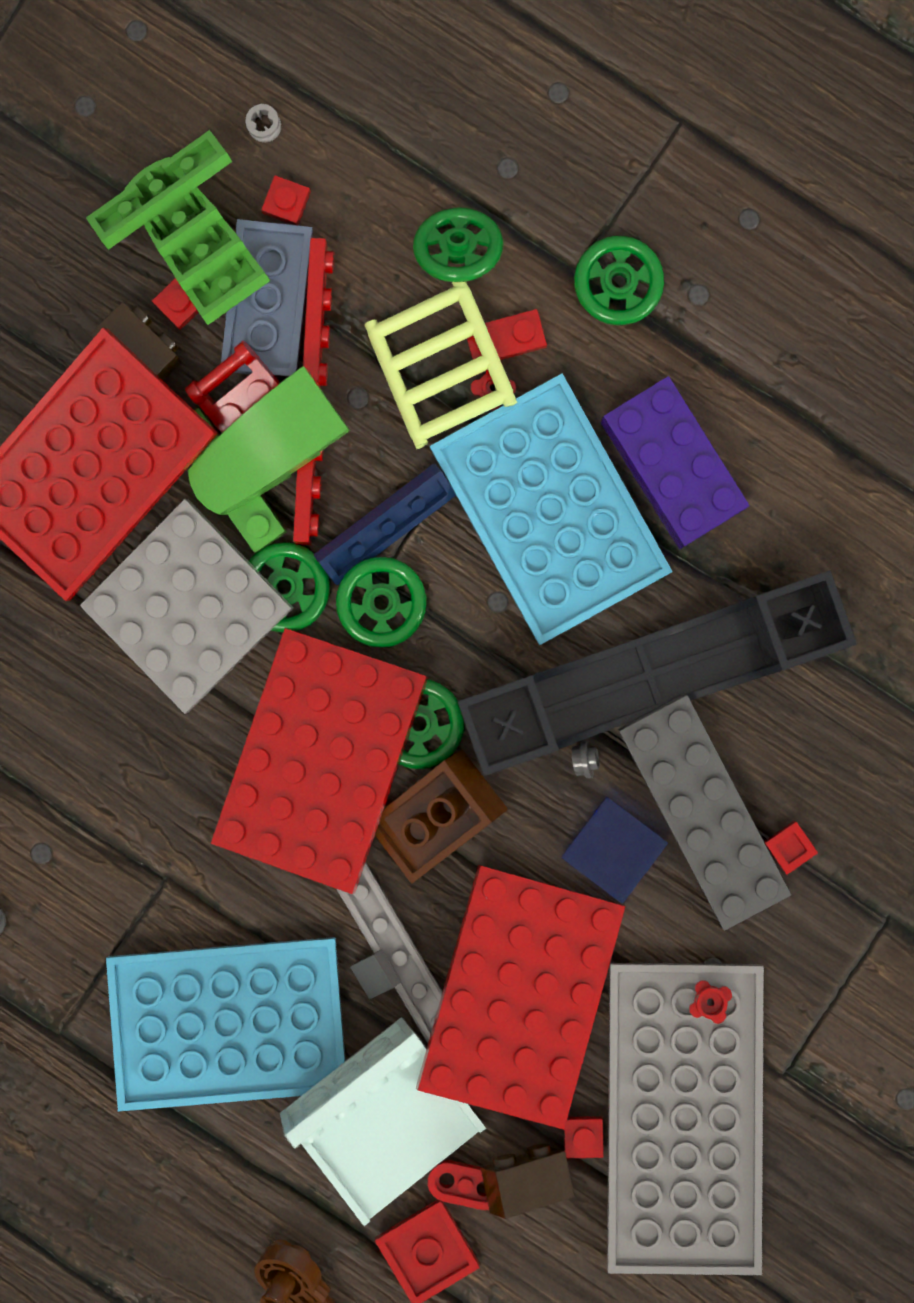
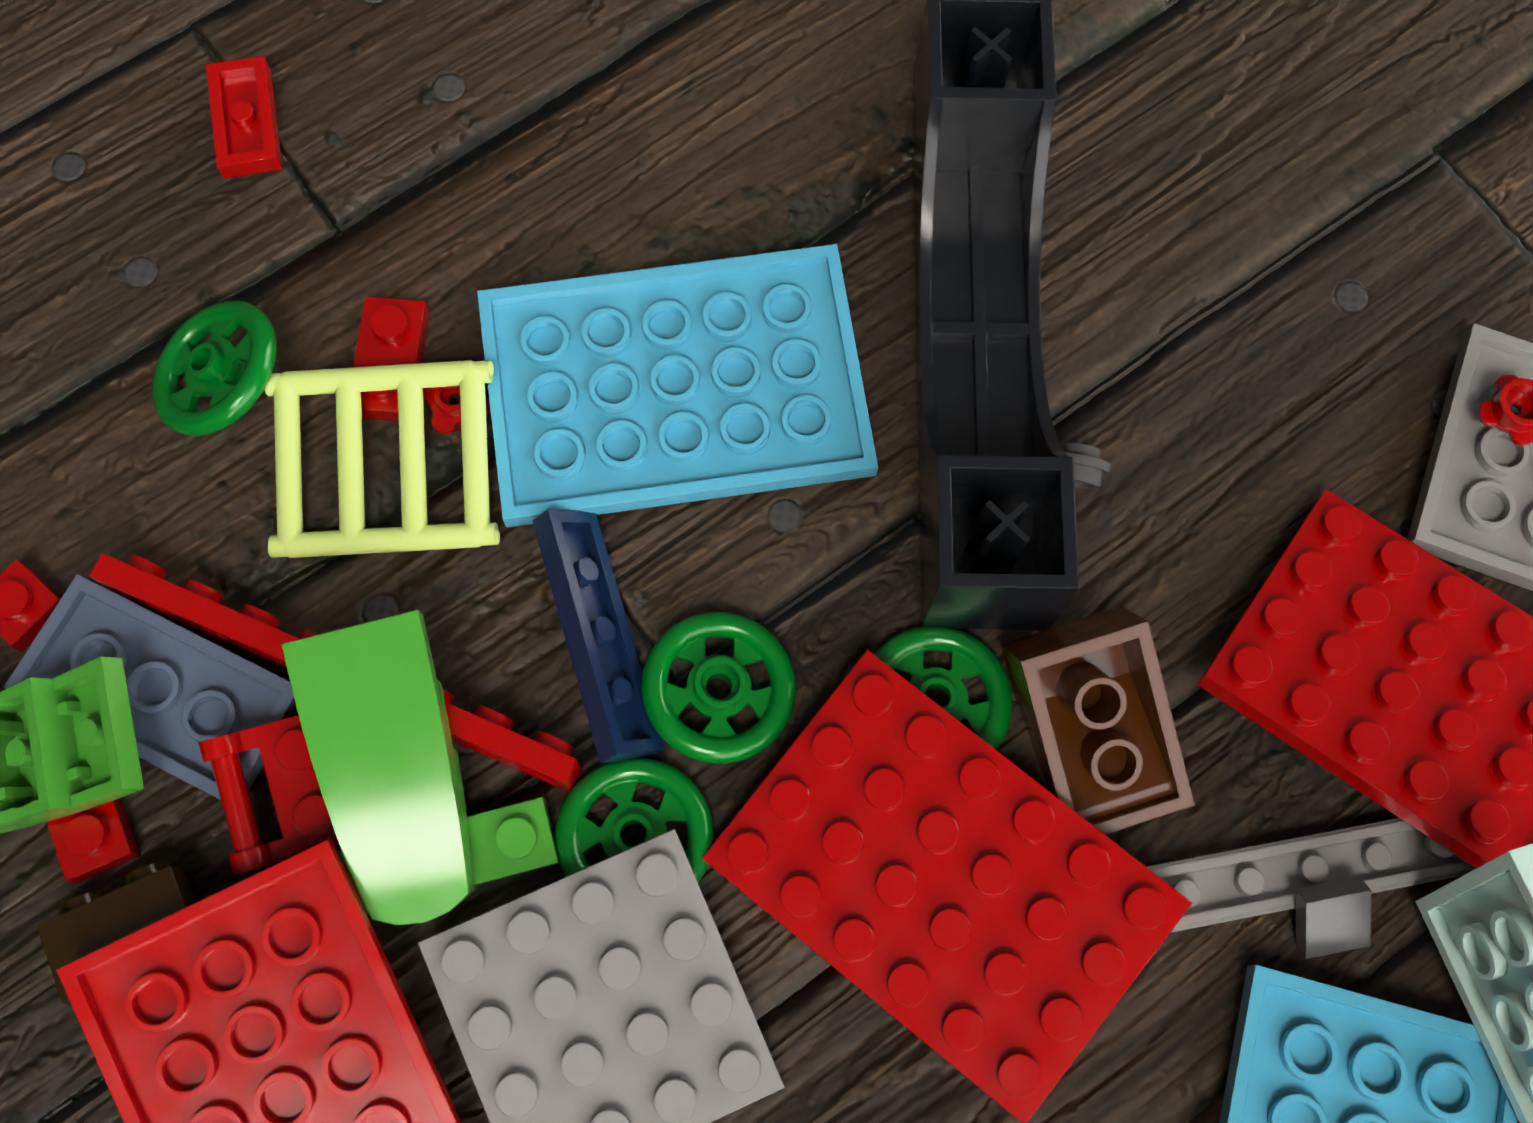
camera: 75 degrees left, 15 degrees down
(614, 850) = (1232, 474): clear blue plate -> none
(625, 184) = (244, 117): none -> red plate
(650, 273) = (398, 213): green plate -> none
(674, 462) = (678, 186): dark purple brick -> none
(704, 811) = (1212, 324): dark grey plate -> none
(790, 847) = (1301, 231): red plate -> none

